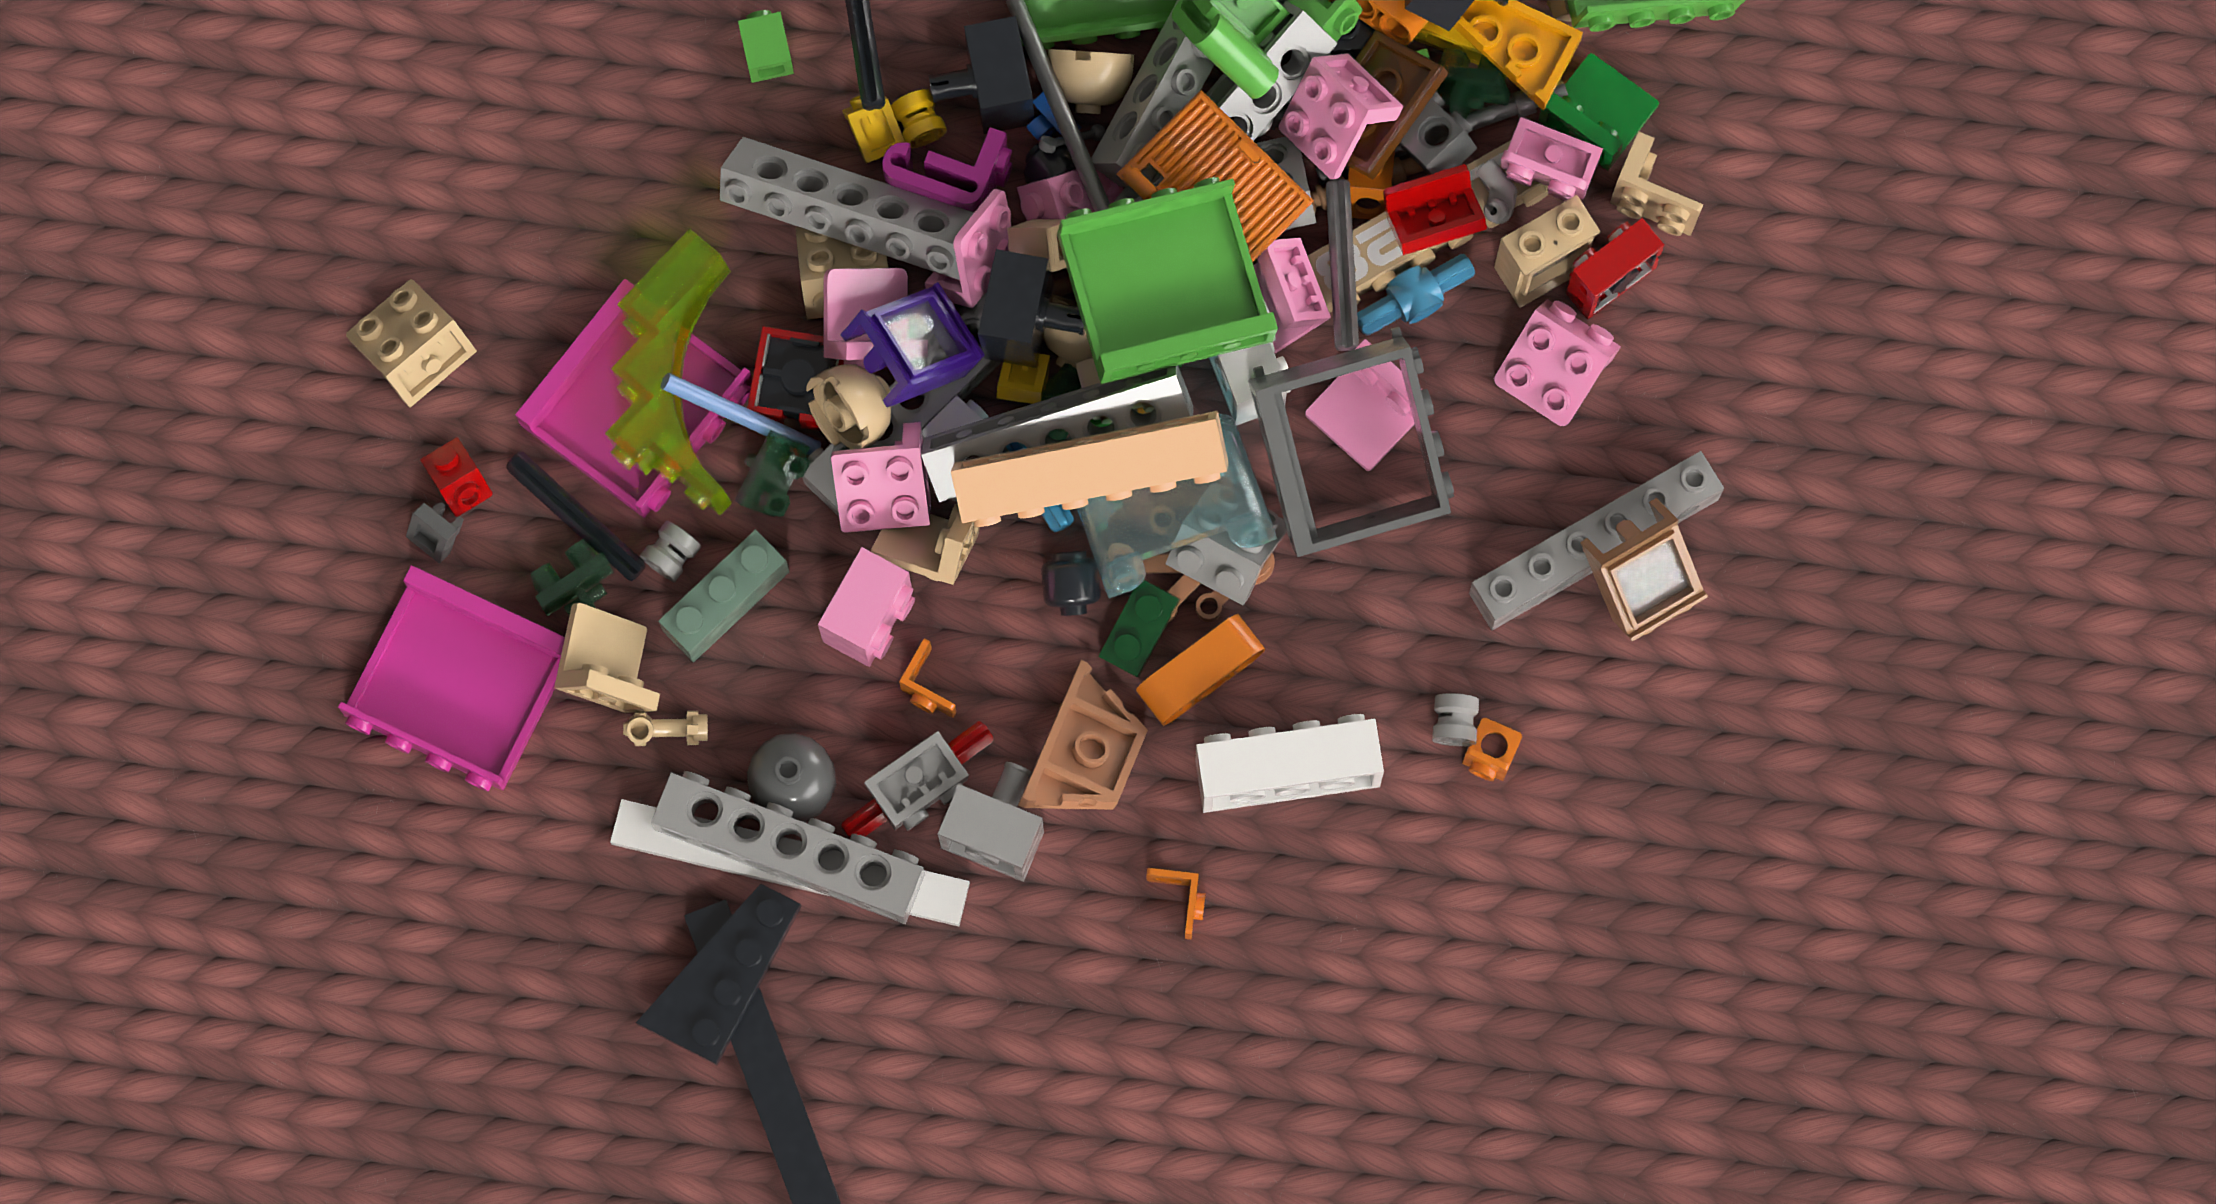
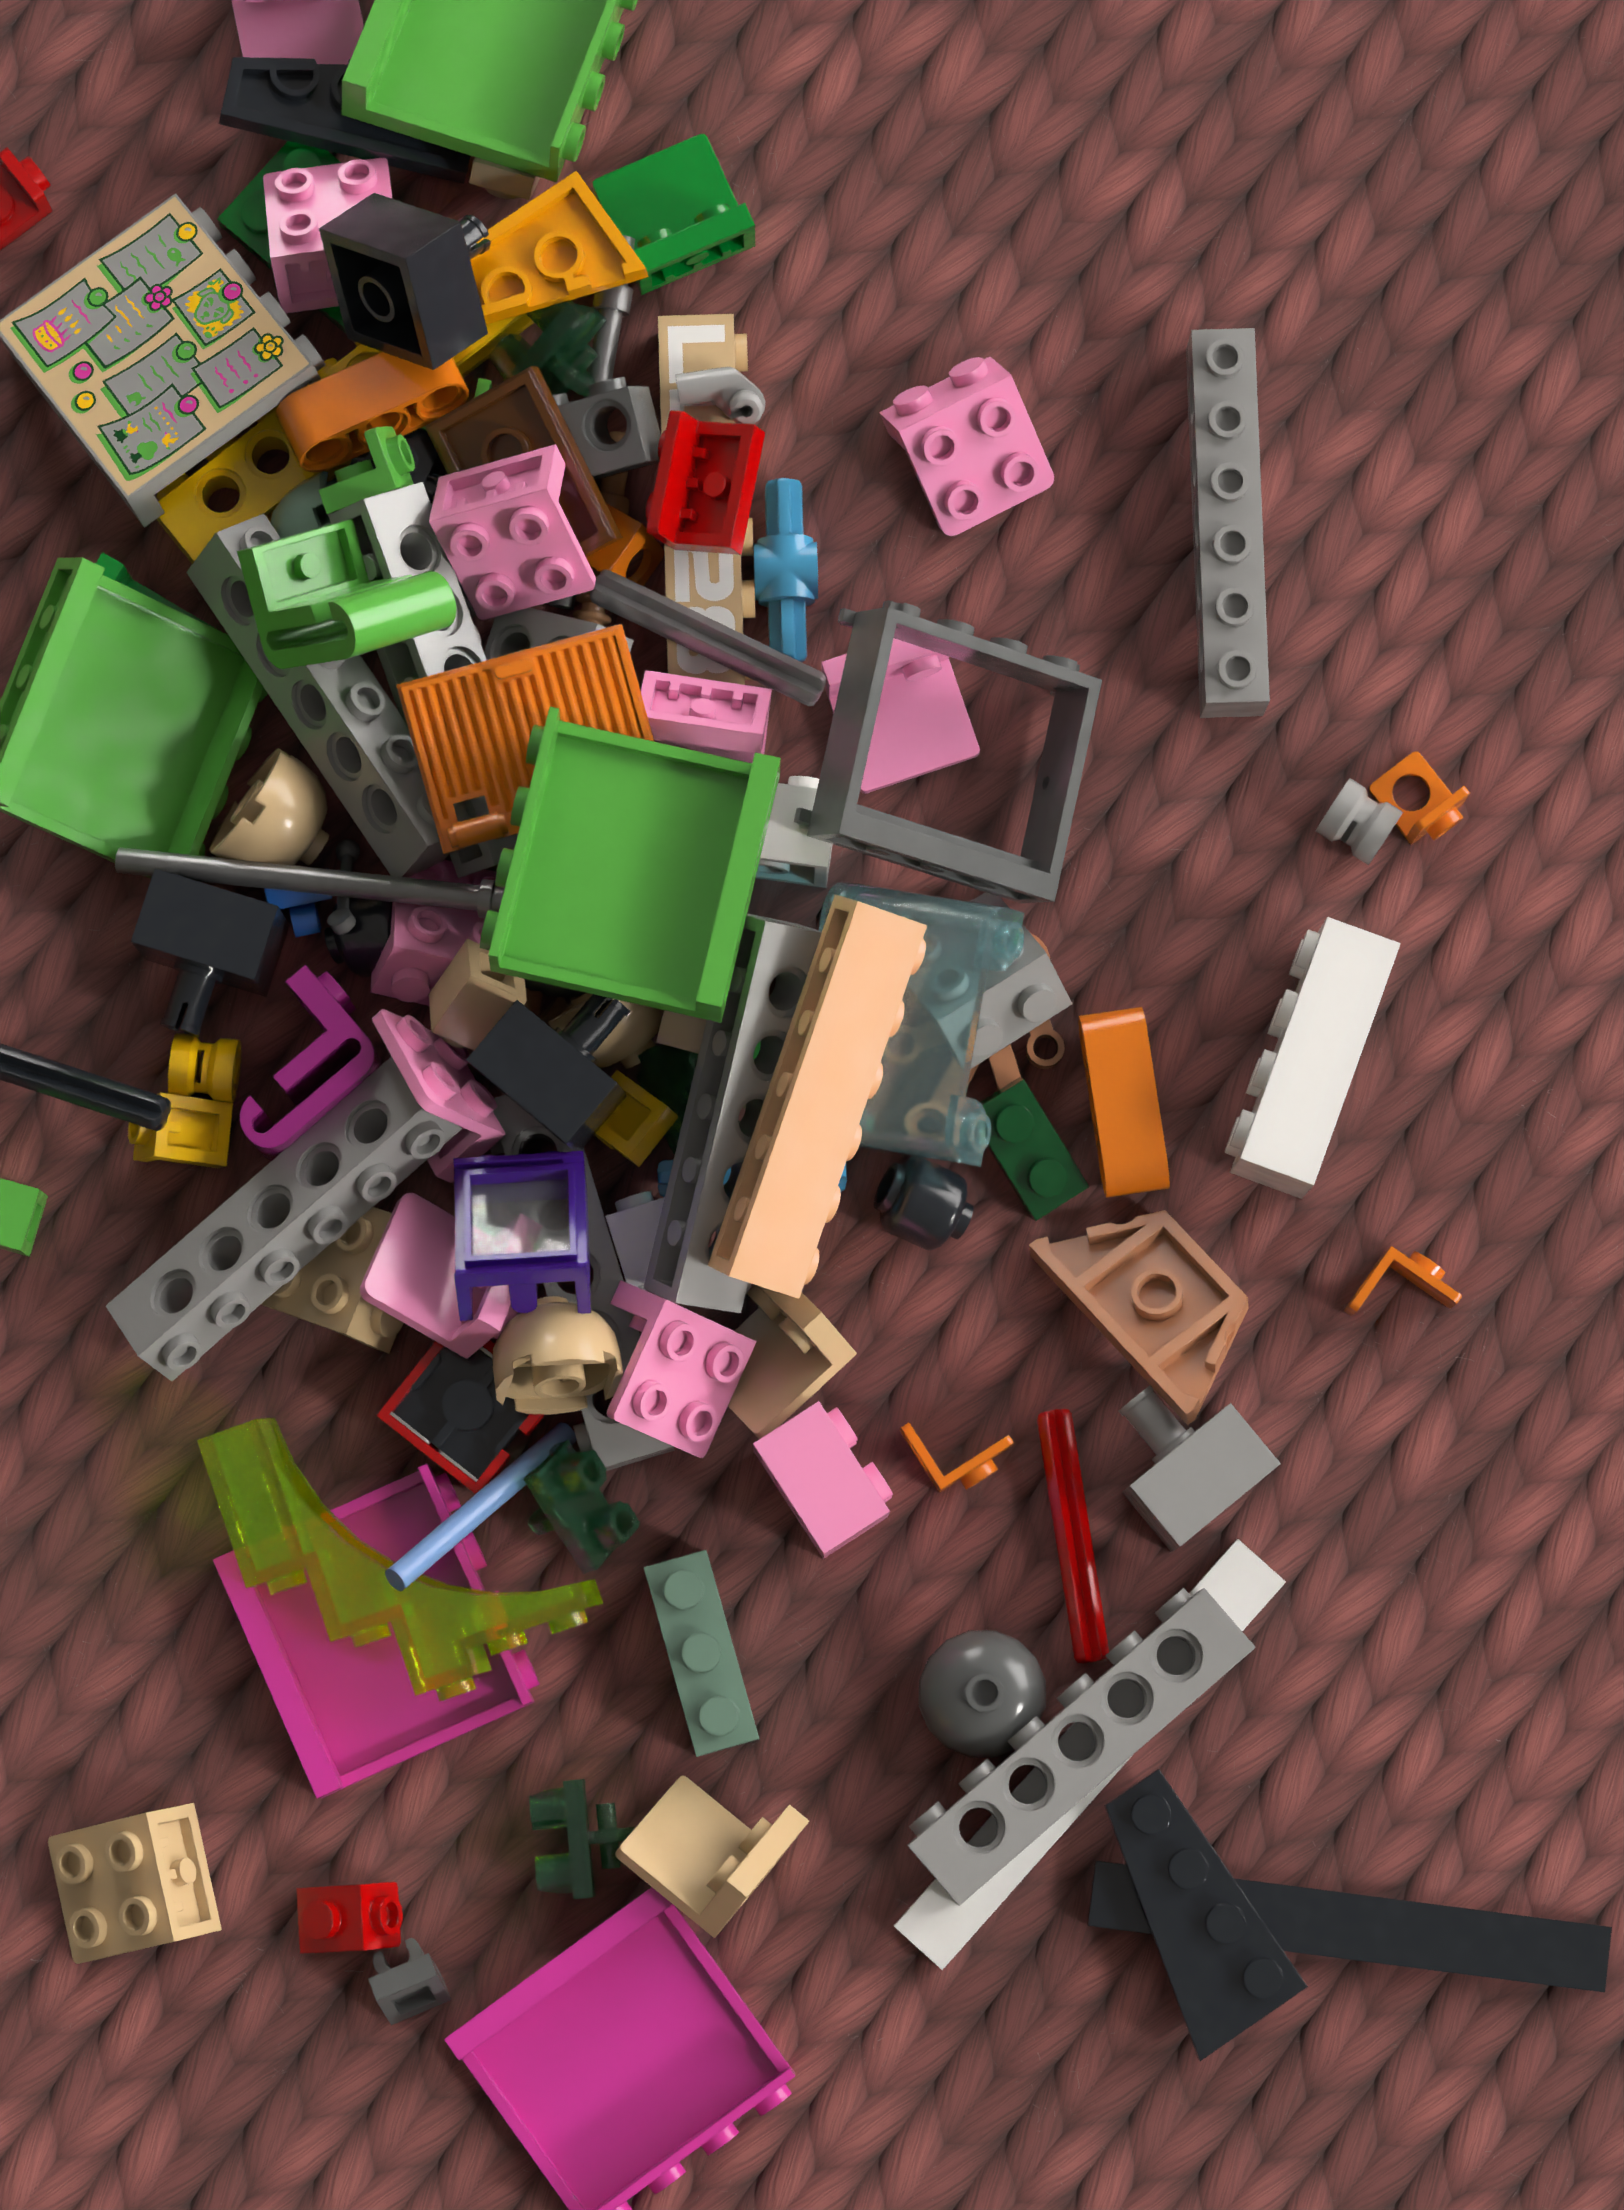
camera: 65 degrees left, 5 degrees up
(575, 515) = (486, 1789): black axle -> none
(642, 728) = (818, 1851): tan bar -> none
(663, 558) = (604, 1707): light grey wheel -> none
(917, 782) = (1082, 1535): light grey bracket -> none
(1544, 250) = (831, 374): tan window -> none
(1550, 159) = (718, 300): bright pink bracket -> none
(1615, 268) = (898, 321): red piece -> none
(1640, 198) = (813, 231): tan bracket -> none
(1646, 575) = (1320, 484): medium nougat window -> none

